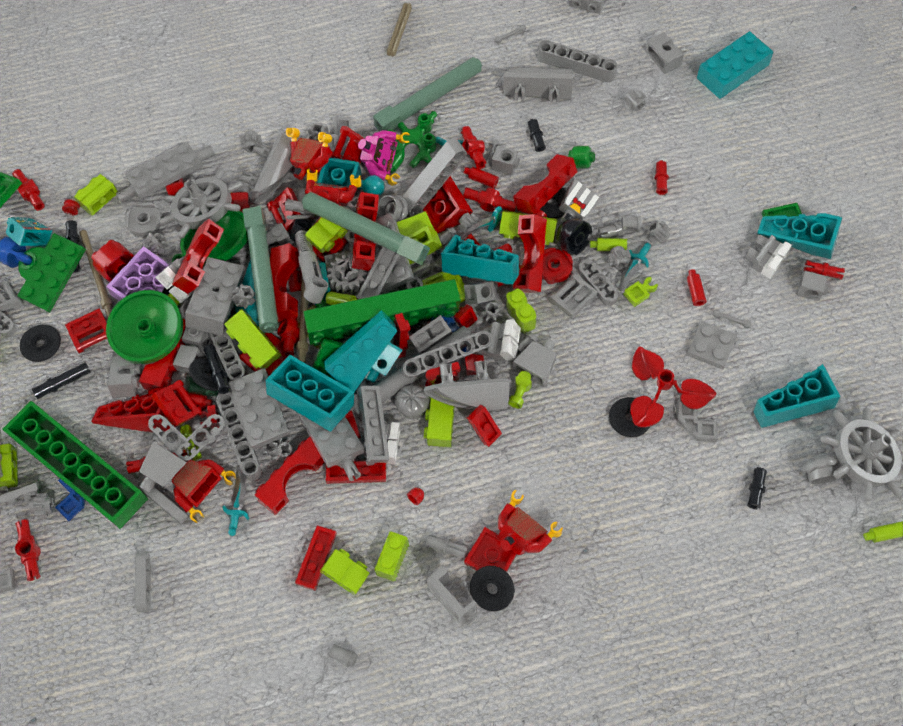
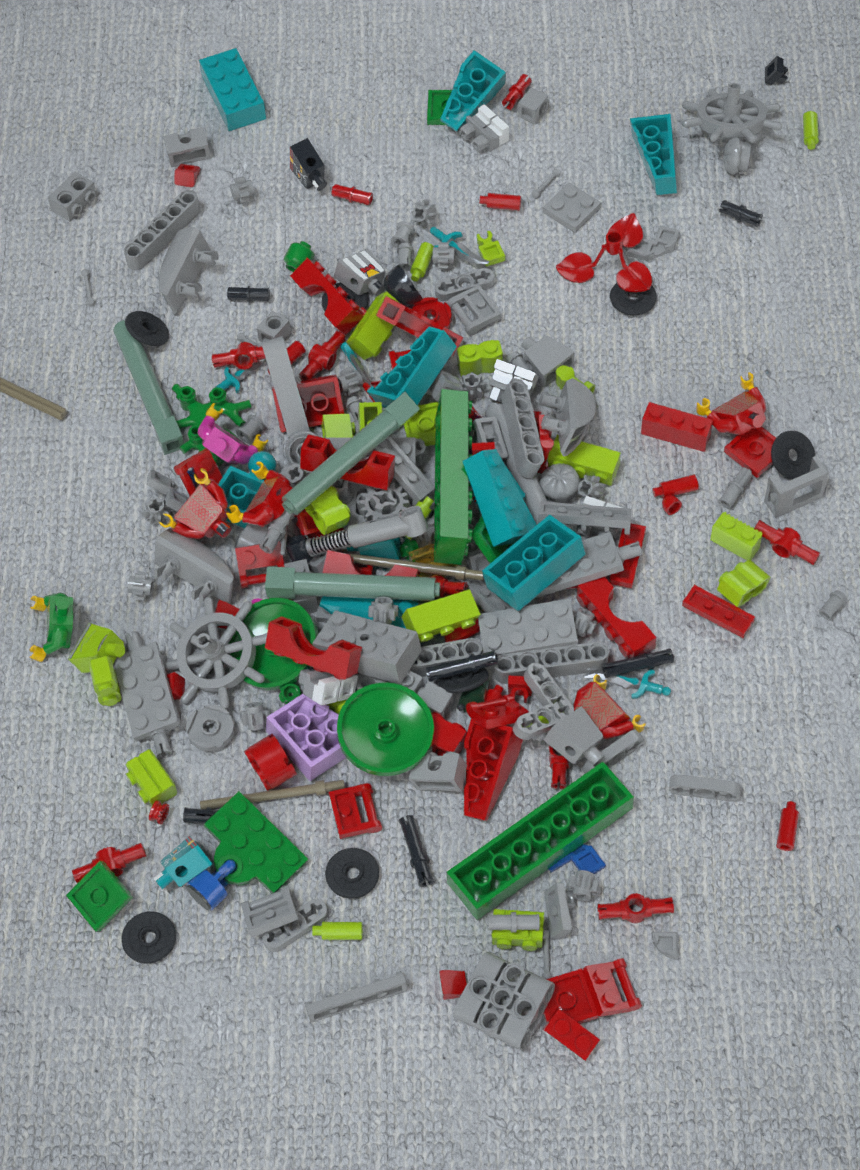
camera: 75 degrees left, 5 degrees down
(117, 658) = (787, 827): none -> red cylinder
(161, 139) = (105, 681): none -> lime brick
(188, 130) = (96, 643): none -> lime torso
(209, 99) = (58, 623): none -> green torso
(252, 503) = (646, 661): none -> black pin
(398, 601) = (787, 542): none -> red pin
(407, 170) = (250, 429): none -> light grey bush
(412, 427) = (591, 487): none -> light grey gear
(435, 496) = (676, 486): none -> red cylinder
(484, 425) = (610, 418): red plate -> none
(486, 71) = (156, 337): none -> black wheel
(495, 481) = (676, 426): none -> red brick
(640, 62) = (186, 175): none -> red slope
(674, 135) = (307, 165): none -> black torso

